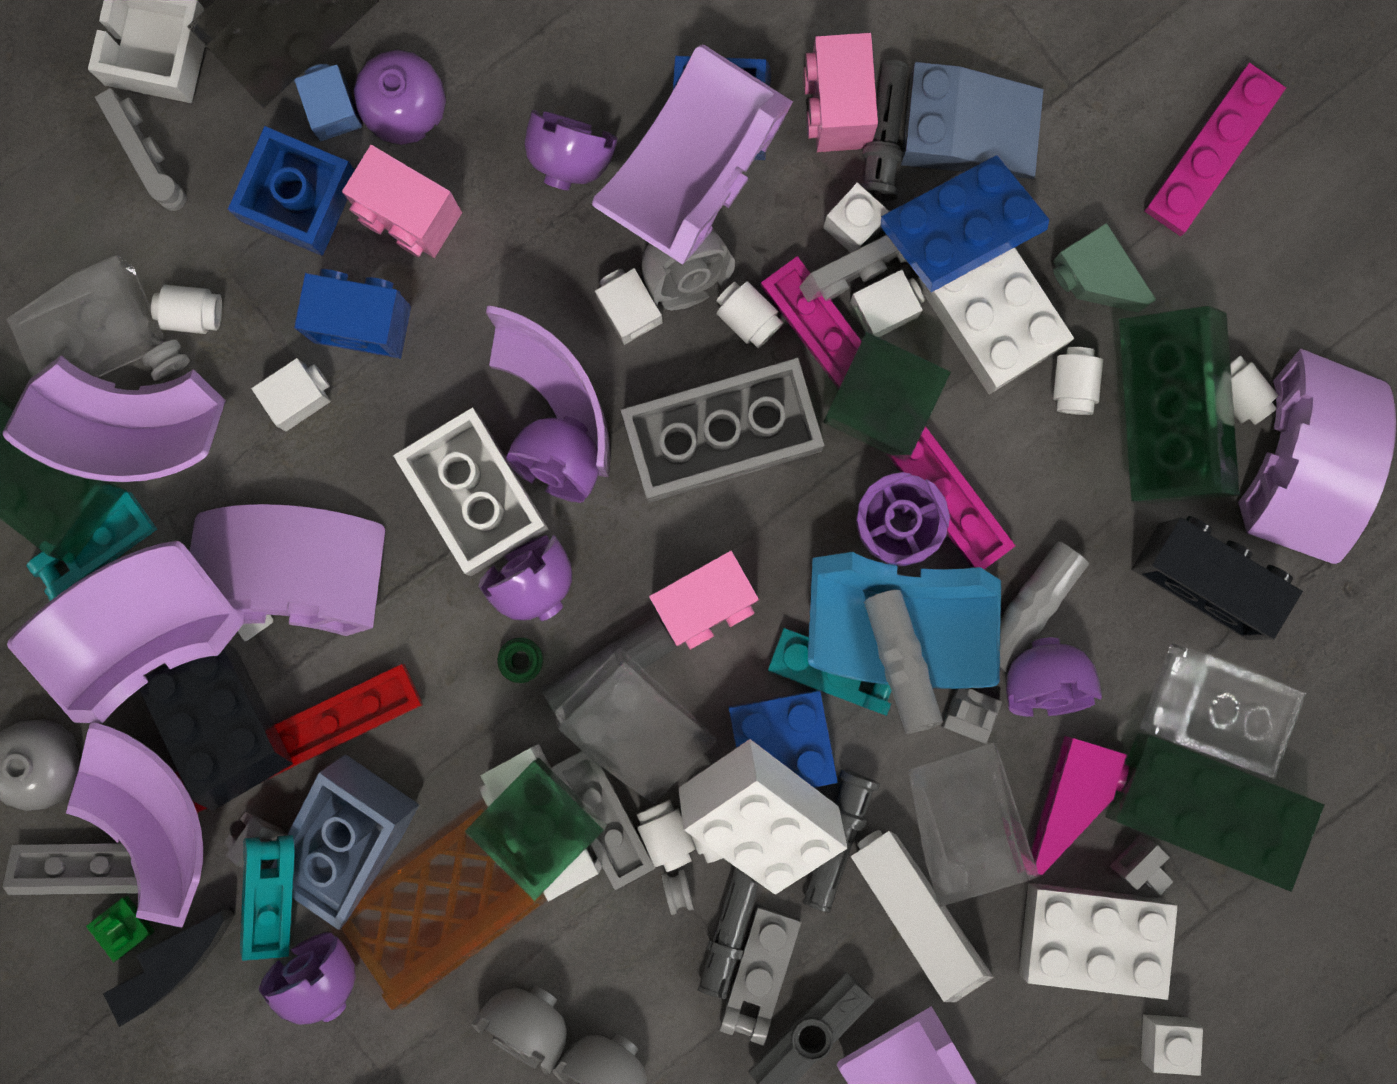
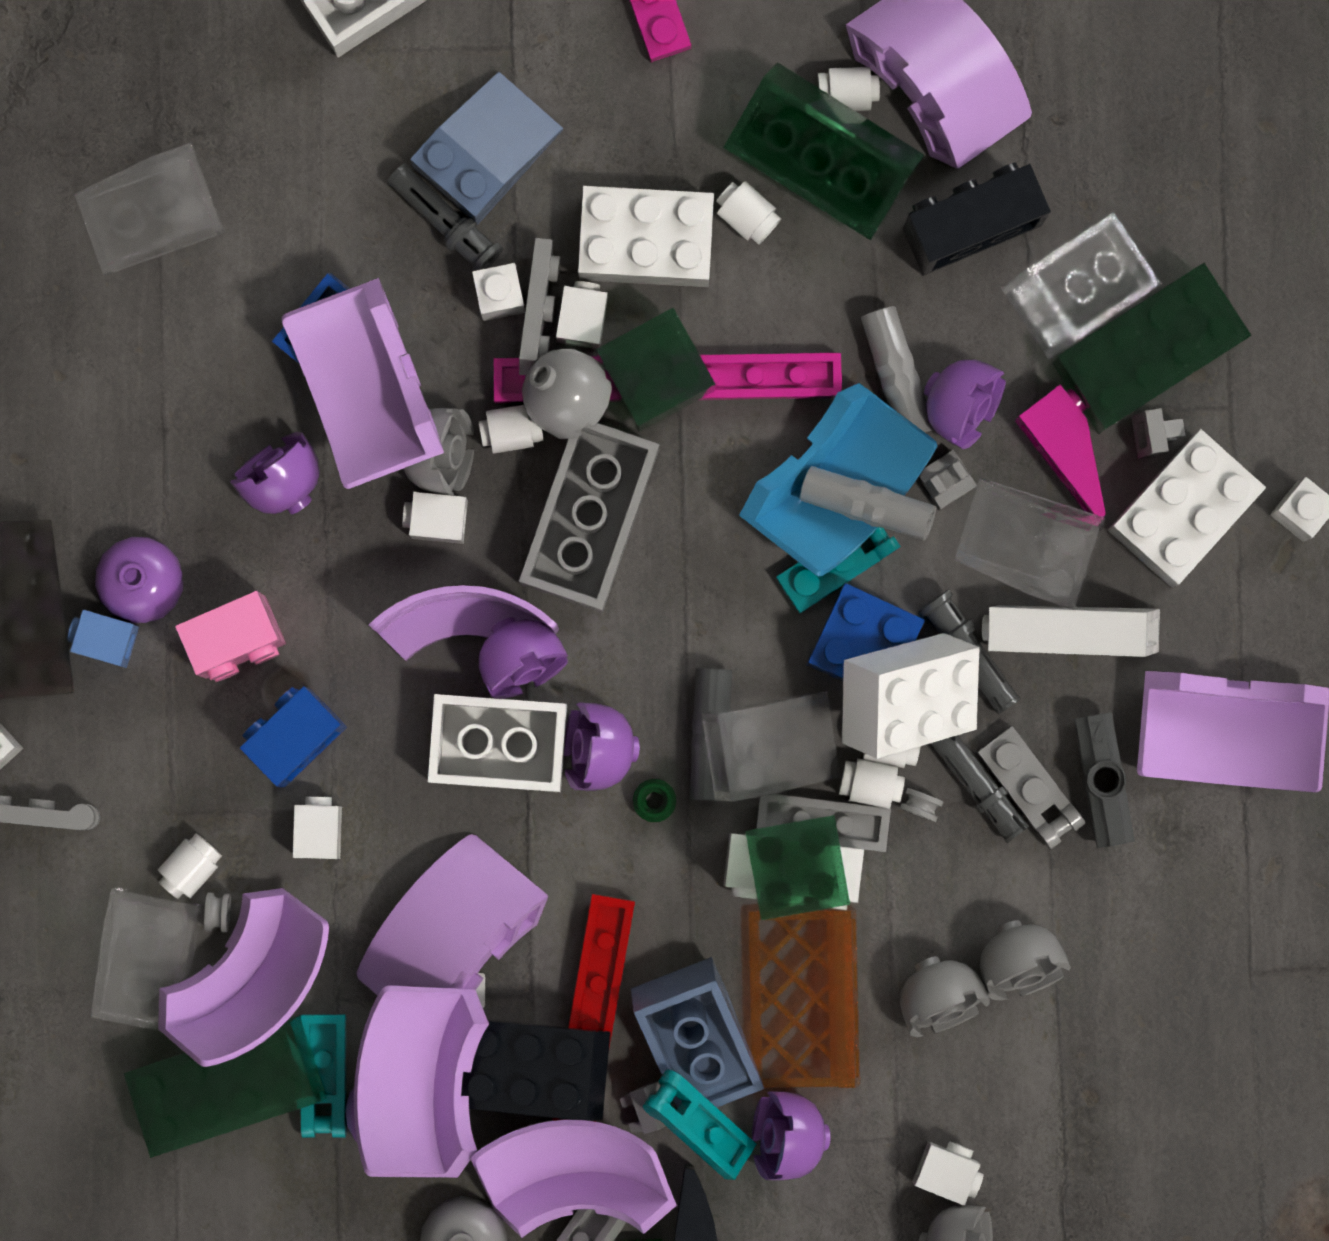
camera: 65 degrees left, 0 degrees up
(292, 191) = (158, 715): blue brick -> none
(704, 600) = (712, 621): bright pink brick -> none
(811, 333) = (566, 392): none -> light grey cylinder
(843, 92) = (392, 232): bright pink brick -> none
(902, 519) = (758, 425): medium lavender cylinder -> none
(964, 223) = (564, 213): blue plate -> none
(1102, 273) = (676, 132): sand green slope -> none

